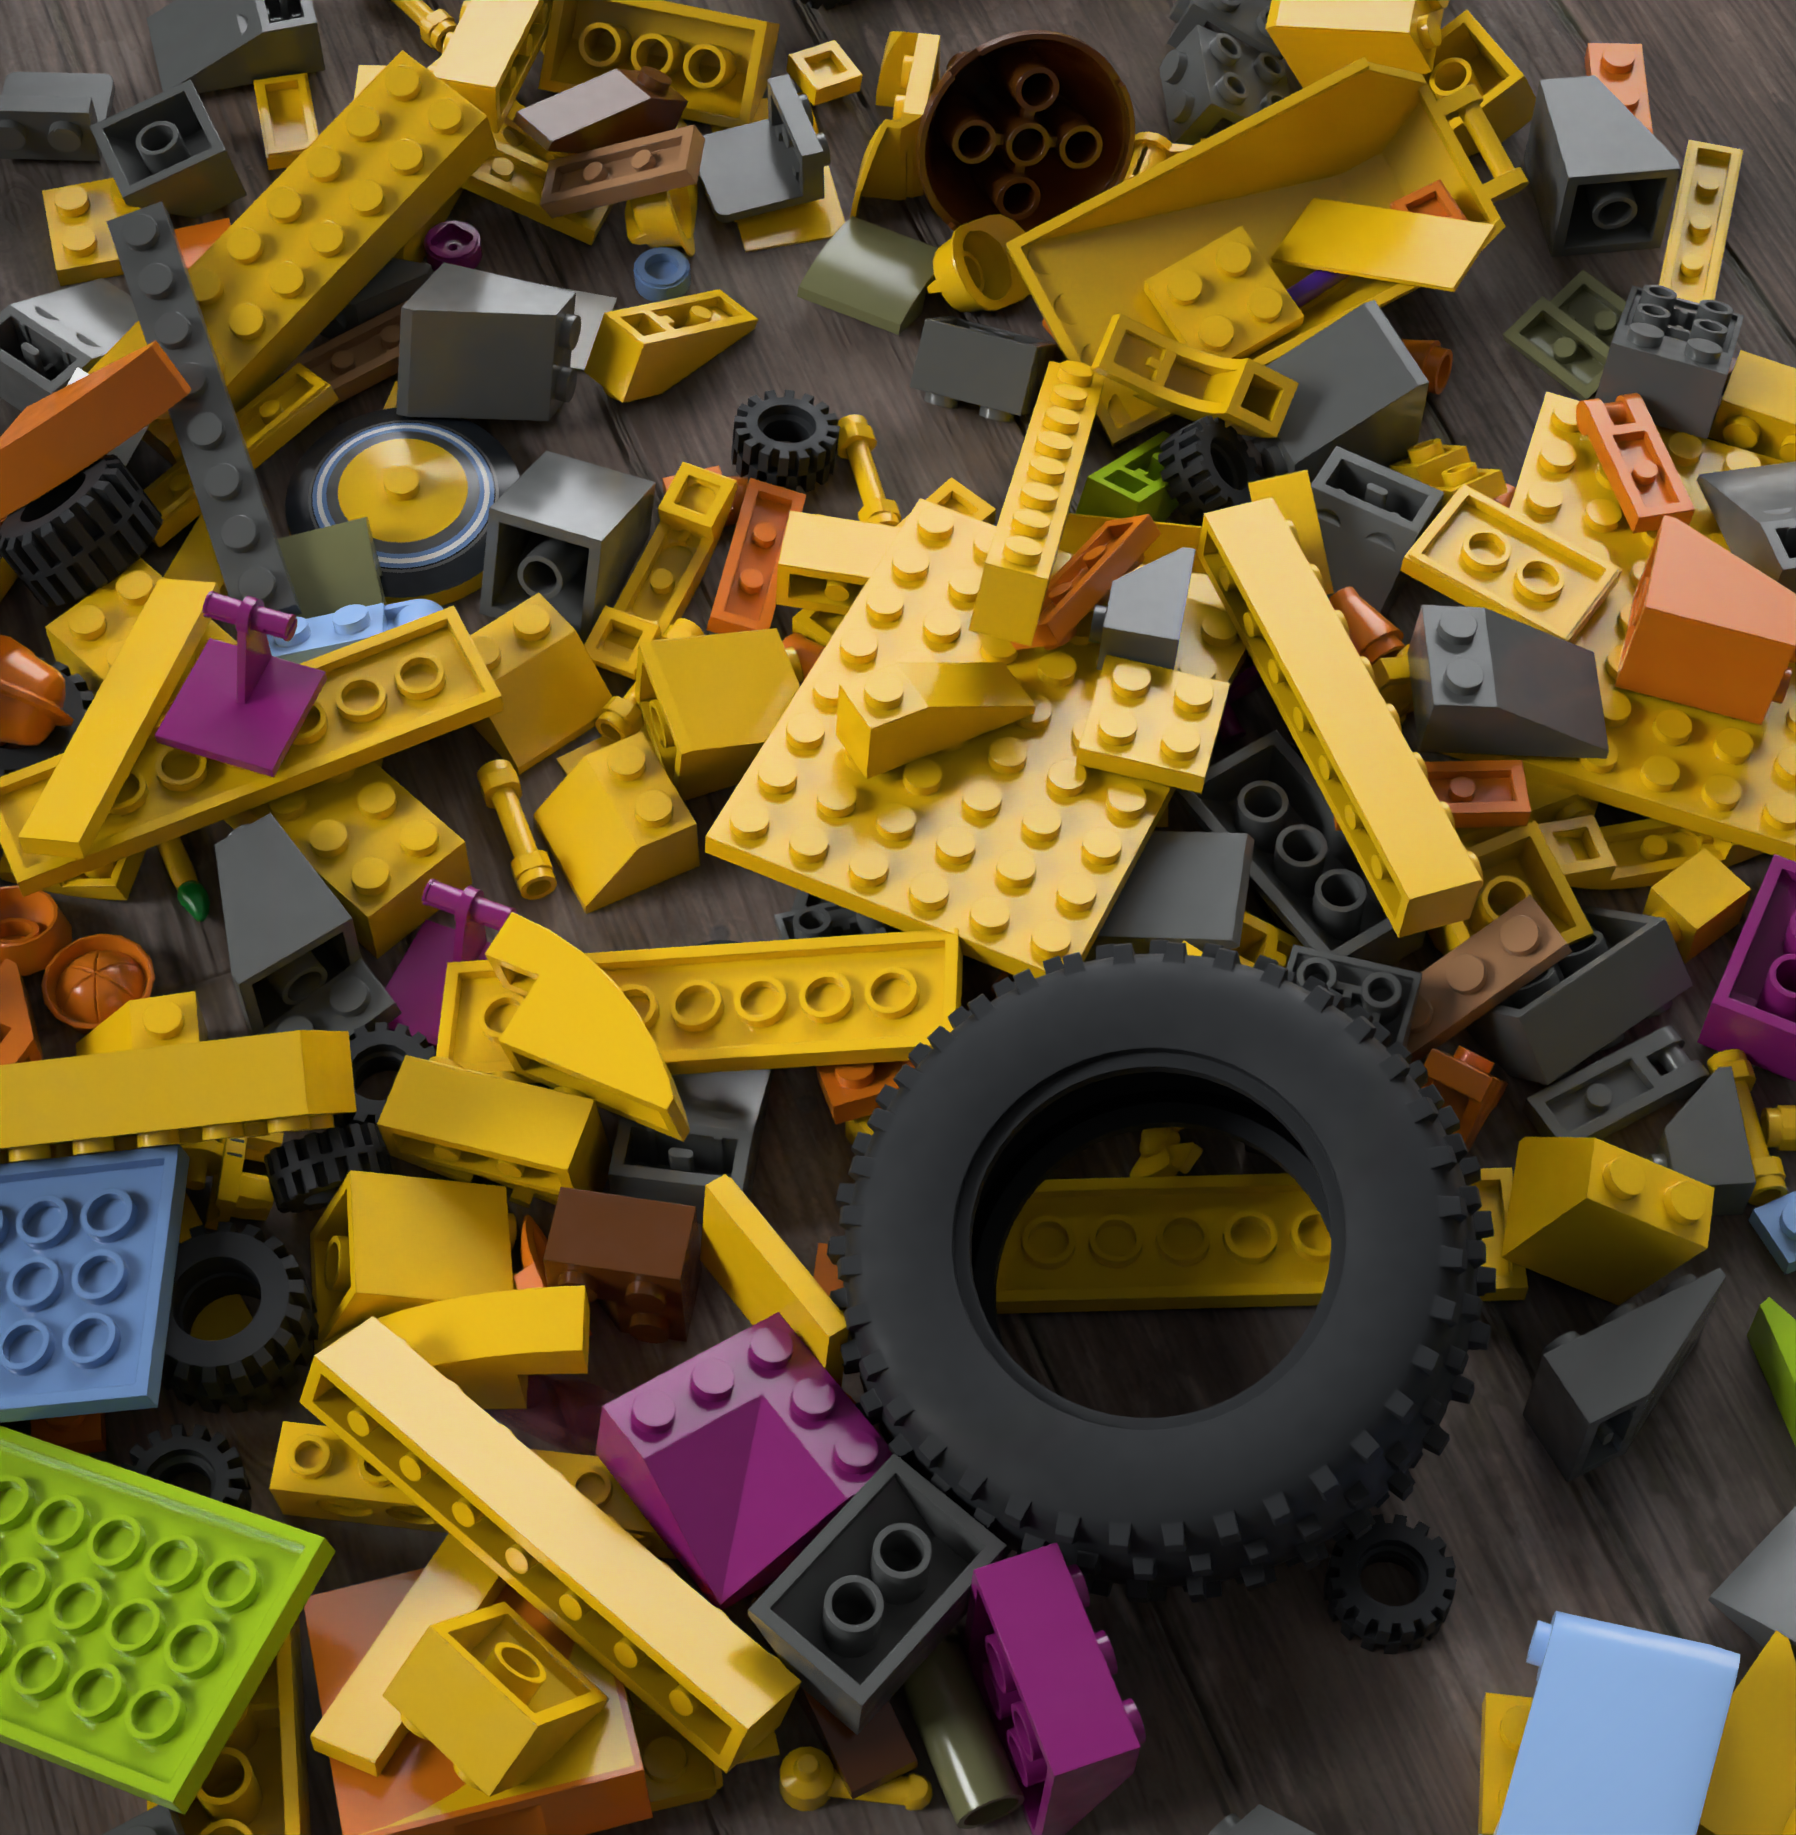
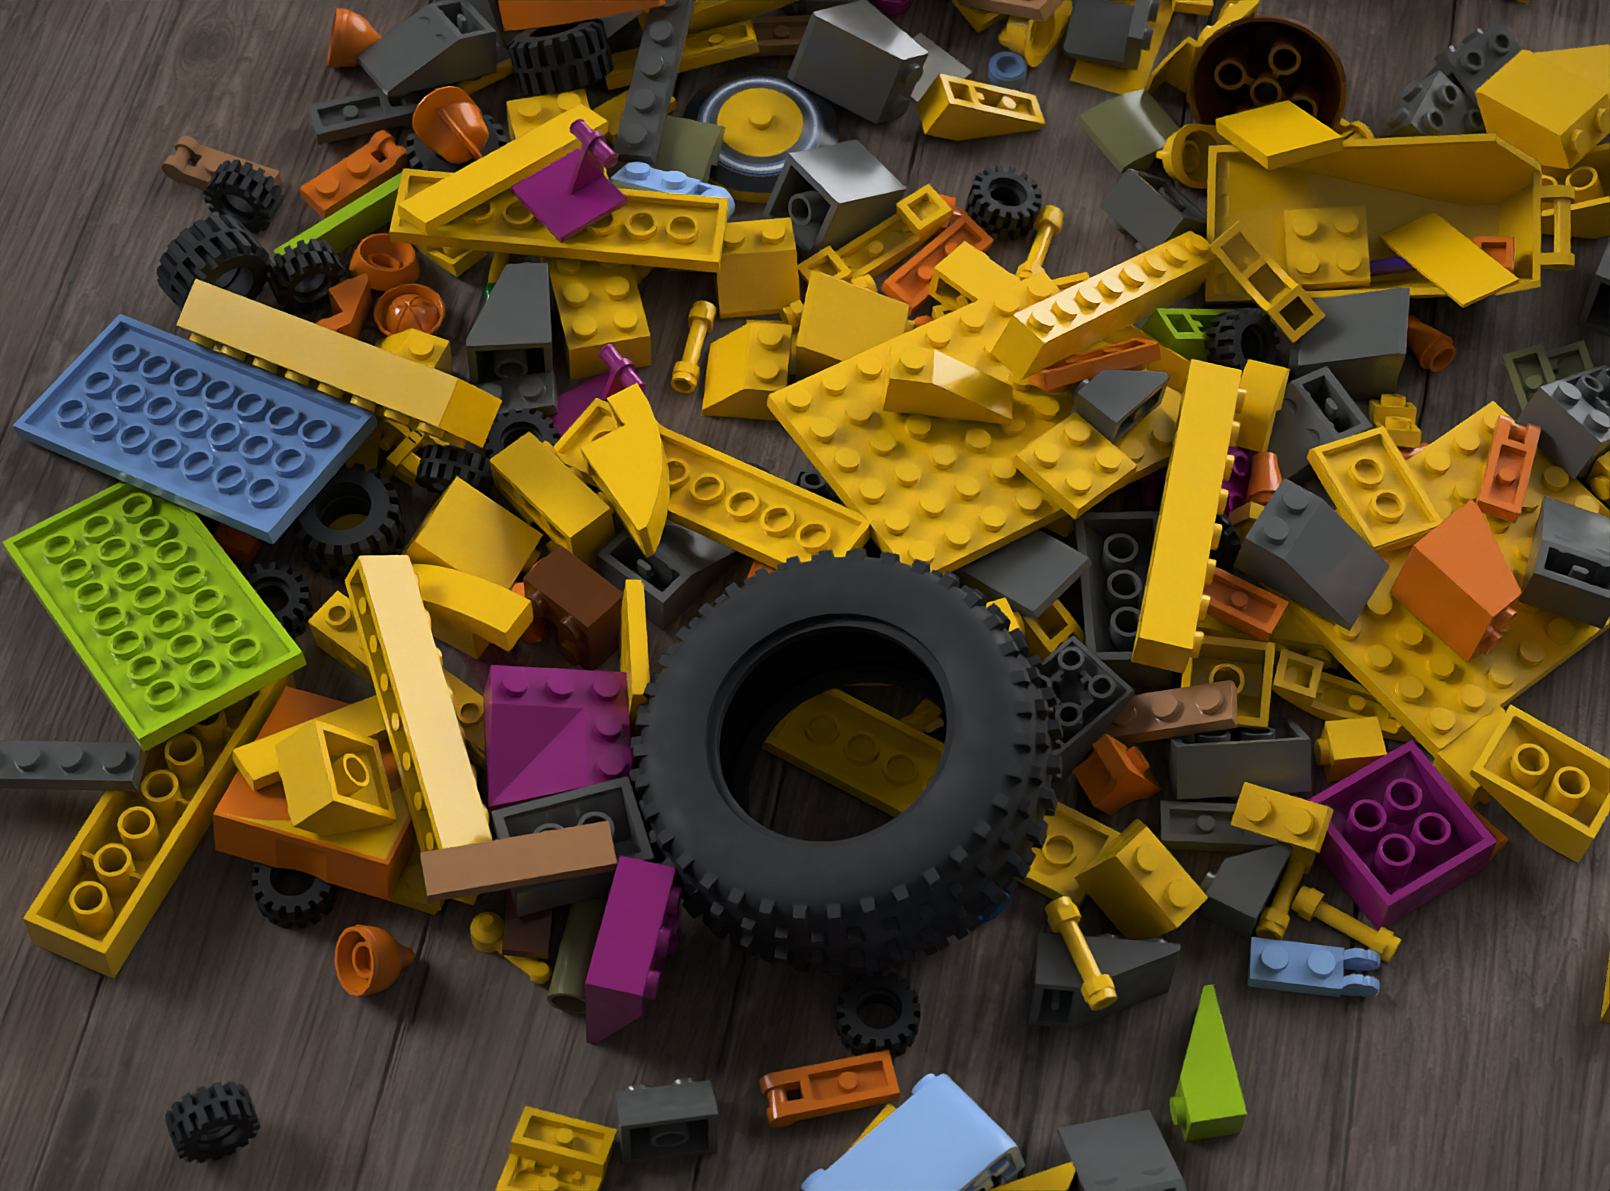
camera: 30 degrees right, 0 degrees up
(836, 1660) = (518, 861): none -> medium nougat tile
(1092, 186) = (1279, 135): none -> yellow tile
(1401, 1717) = (830, 1088): none -> orange plate
(1568, 1315) = (1097, 988): none -> yellow bar
(1698, 1036) = (1282, 817): none -> yellow plate

